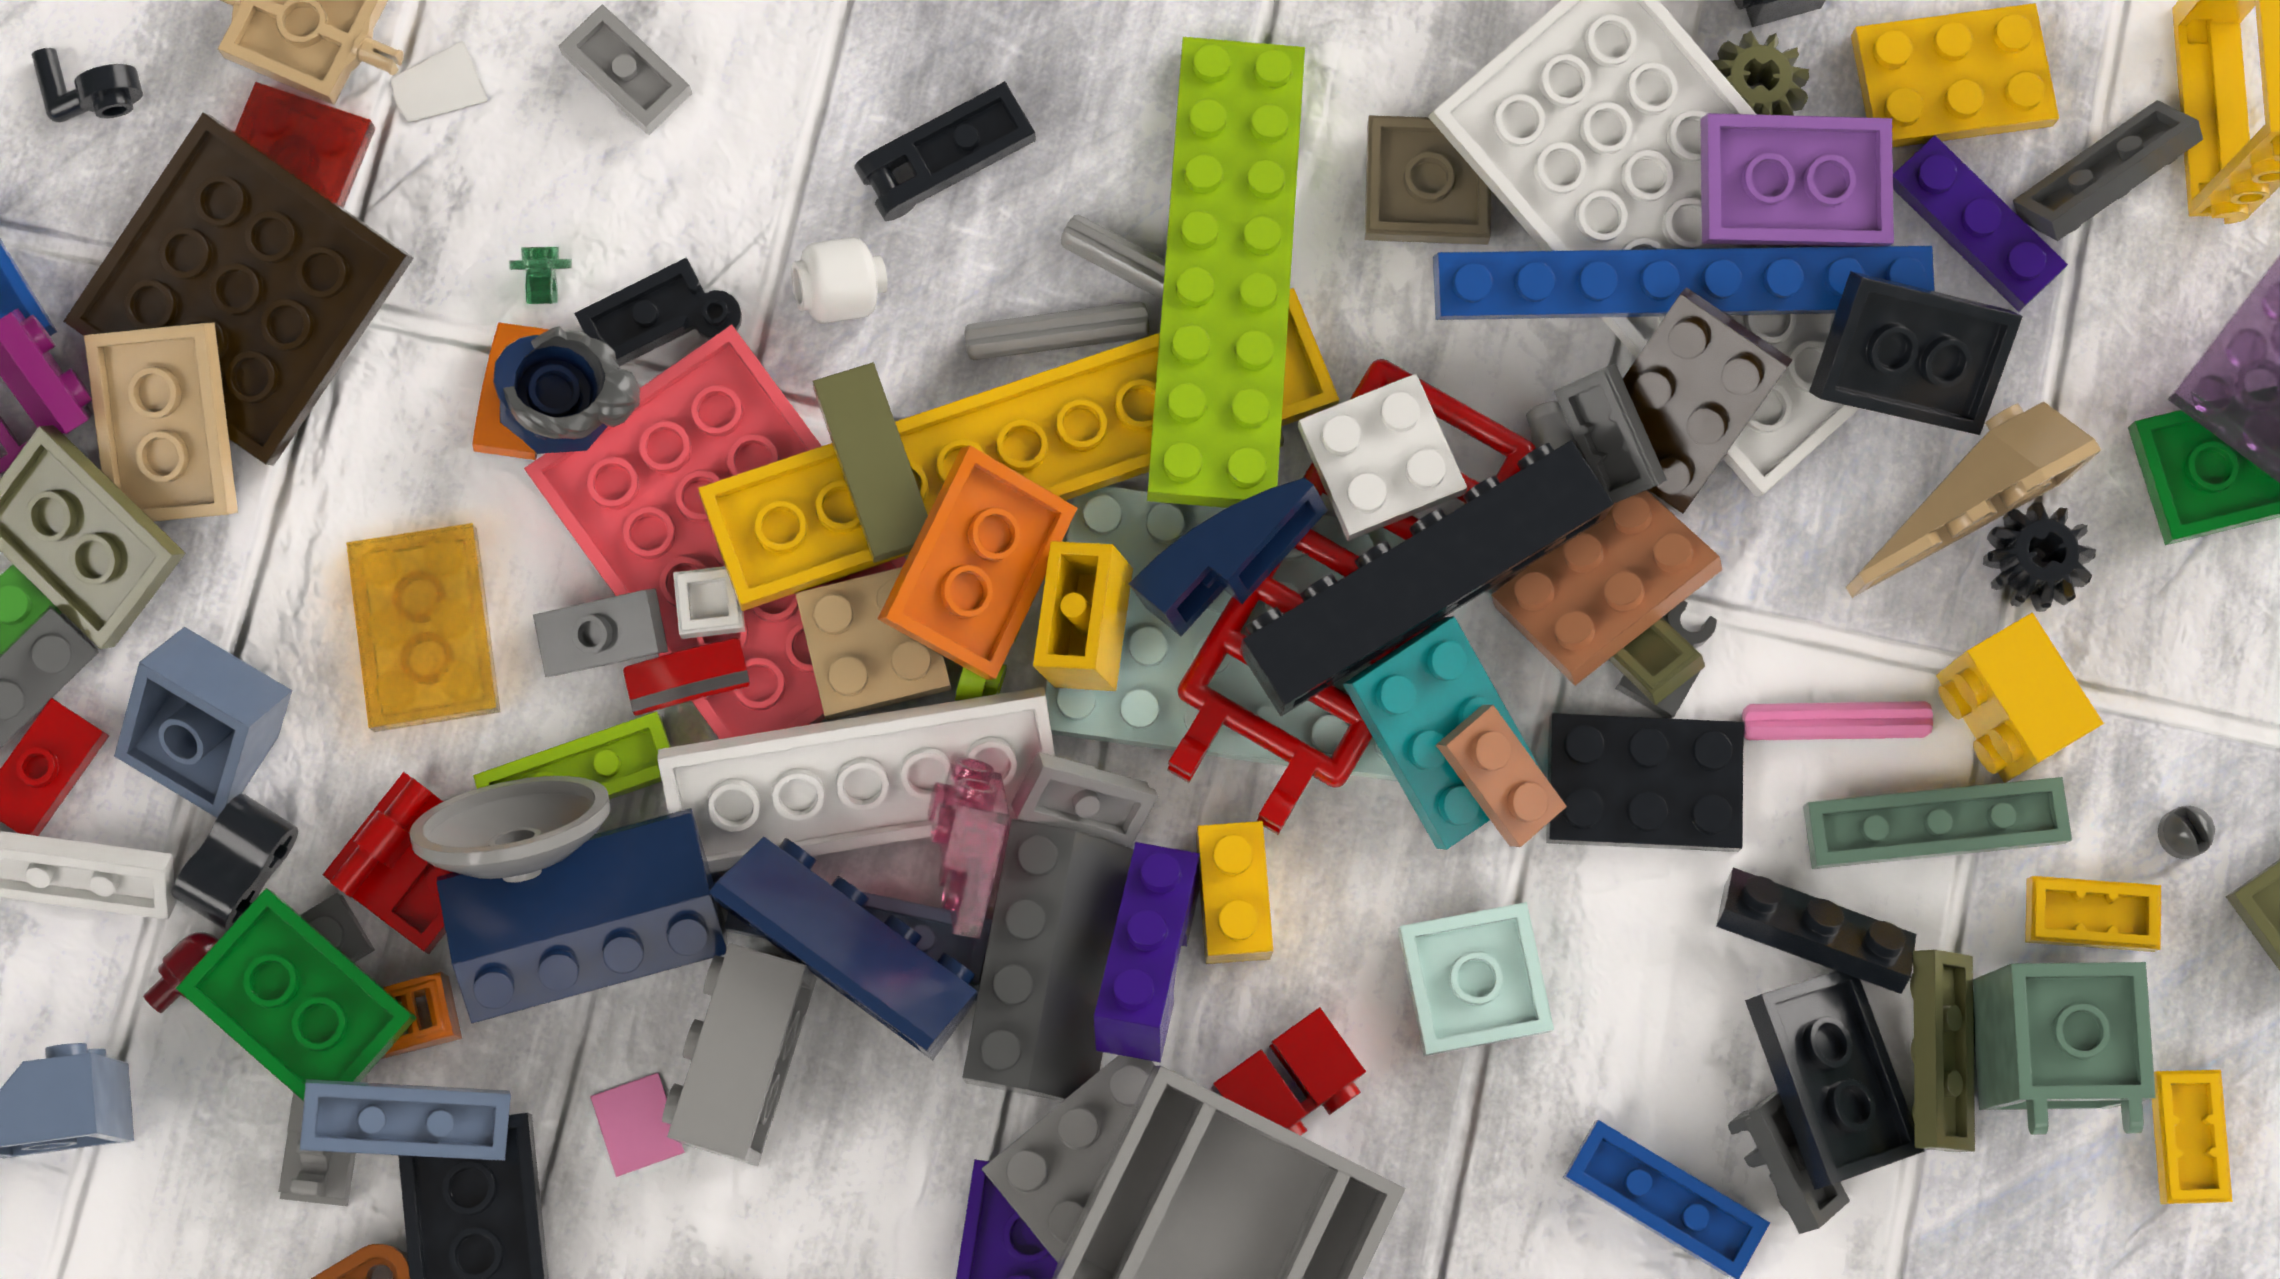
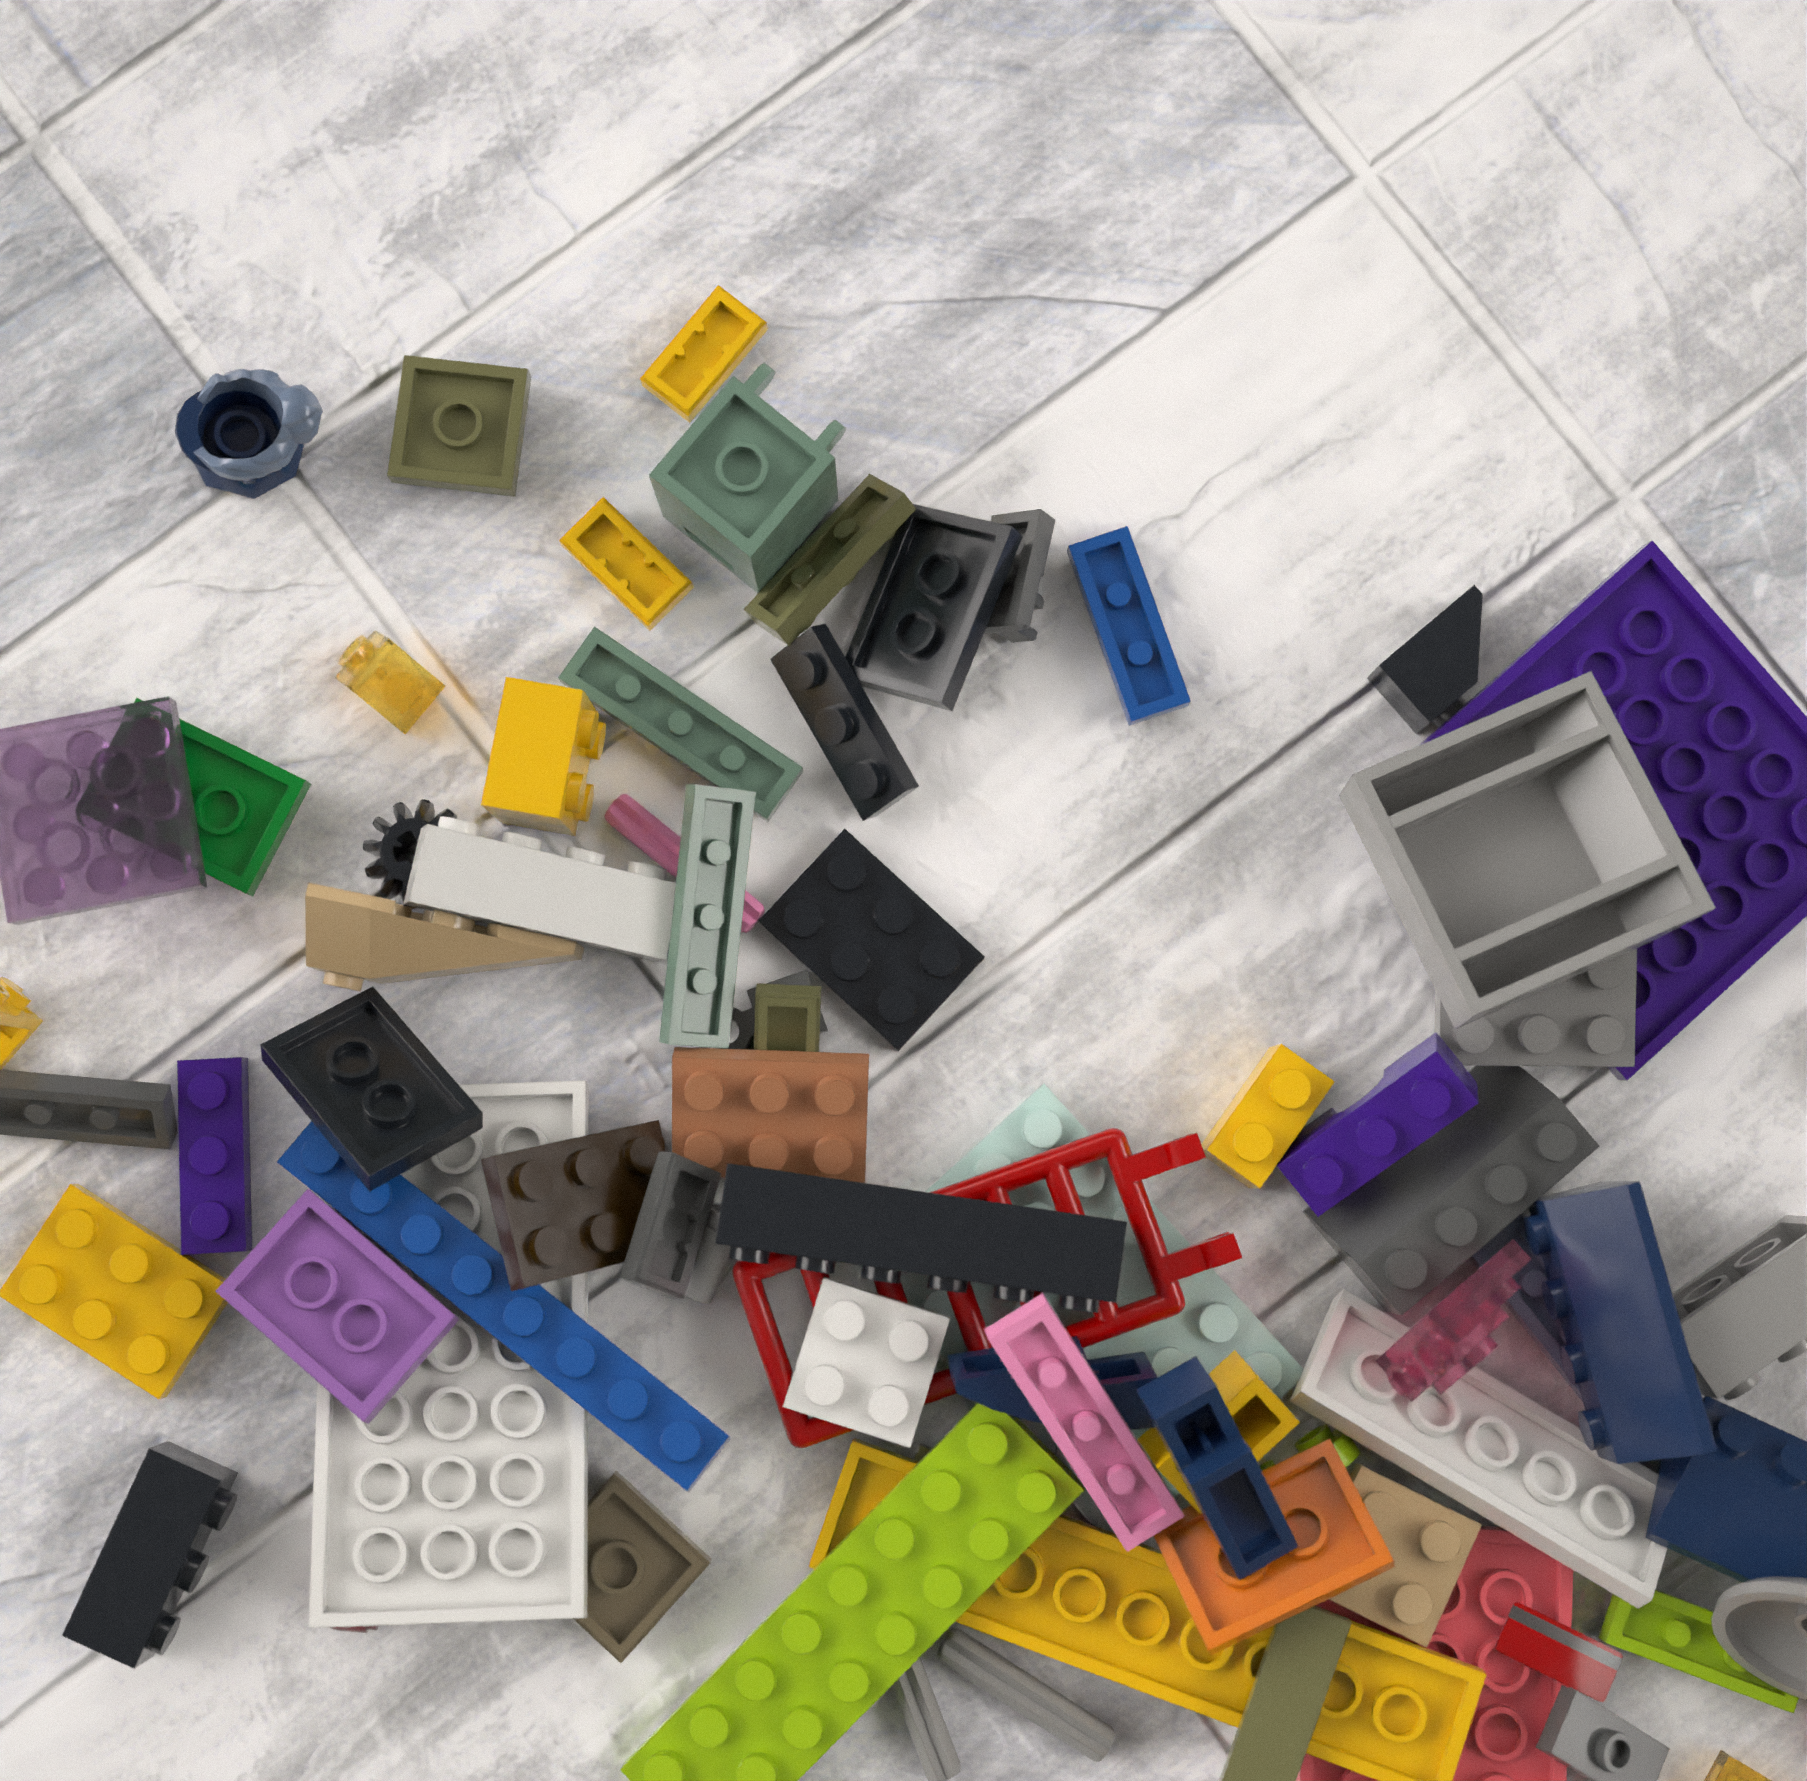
camera: 140 degrees left, 5 degrees up
(706, 603) = (1505, 1701): white tile -> none
(1073, 576) = (1217, 1467): none -> dark blue slope
(1083, 799) = (1328, 1285): light grey plate -> none
(1195, 532) = (1084, 1422): none -> bright pink plate
(1314, 1060) = (1306, 940): red piece -> none
(1415, 702) = (1000, 1103): teal plate -> none
(1475, 979) = (1132, 900): light aqua plate -> none
(1501, 775) = (989, 1031): nougat plate -> none
(1770, 67) = (271, 1437): olive gear -> none
(1787, 685) = (707, 916): none -> plate
(1923, 598) = (542, 891): none -> white brick
(2178, 838) = (511, 567): dark grey hinge -> none
(2184, 668) = (388, 679): none -> clear yellow bracket

